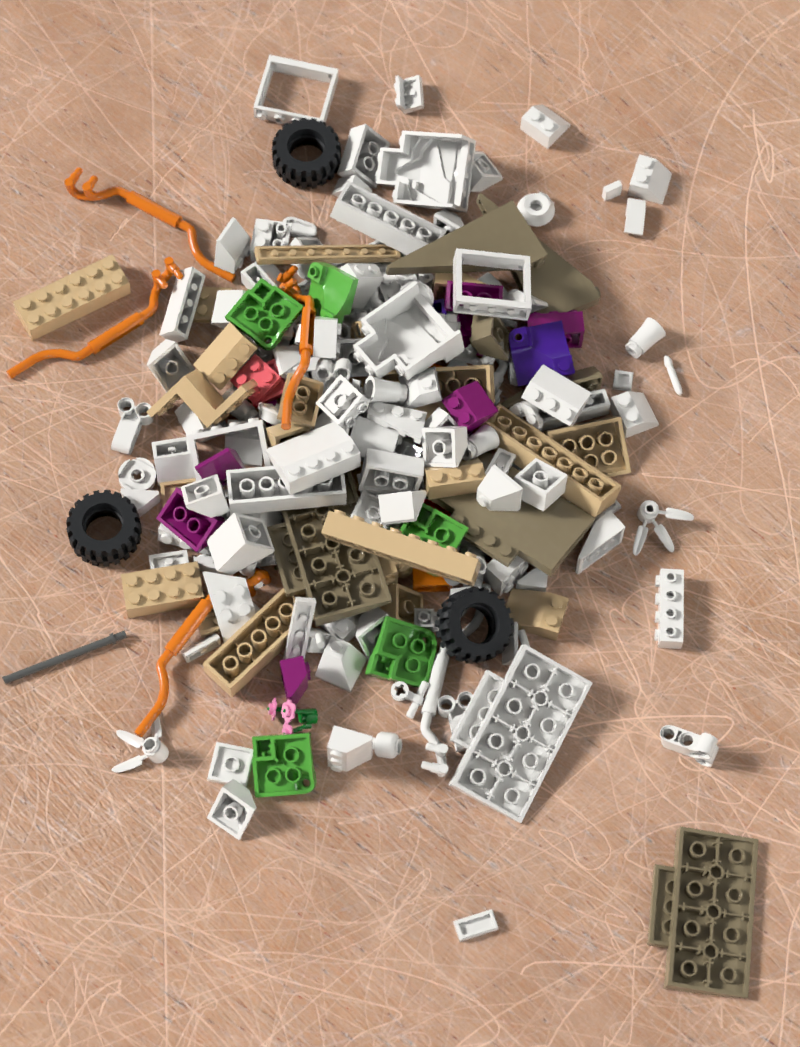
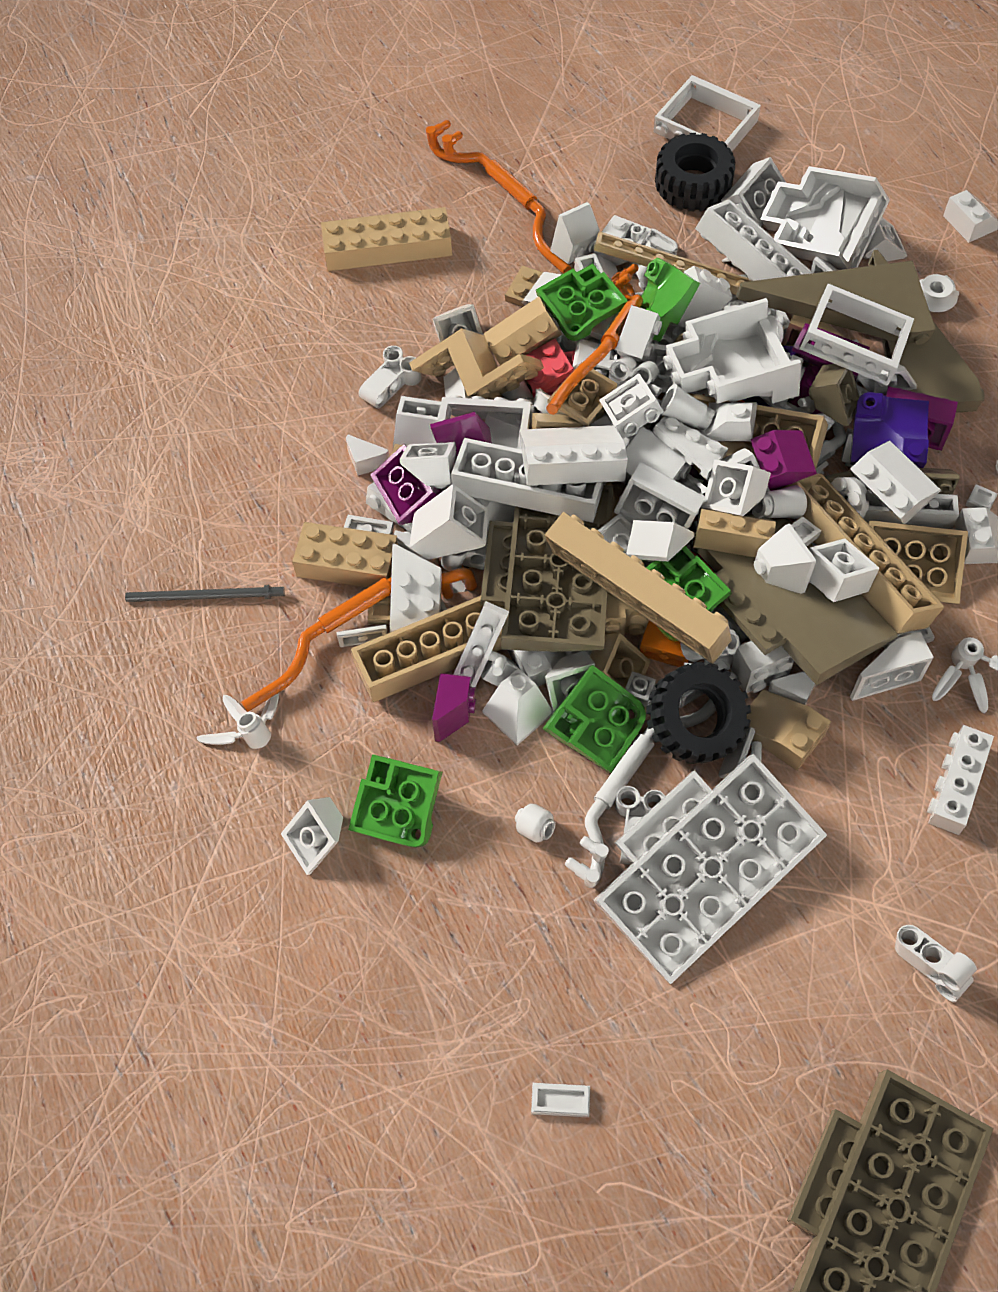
camera: 25 degrees right, 5 degrees down
(108, 550) = (307, 446): black tyre -> none
(114, 333) = (415, 285): orange piece -> none
(136, 466) = (369, 420): white plate -> none
(182, 305) = (499, 276): white brick -> none
(230, 763) = (336, 778): white tile -> none
(288, 711) = (451, 754): plant -> none
(348, 749) = (481, 808): white slope -> none
(409, 94) = (830, 149): white bracket -> none
(416, 699) = (593, 779): white piece -> none

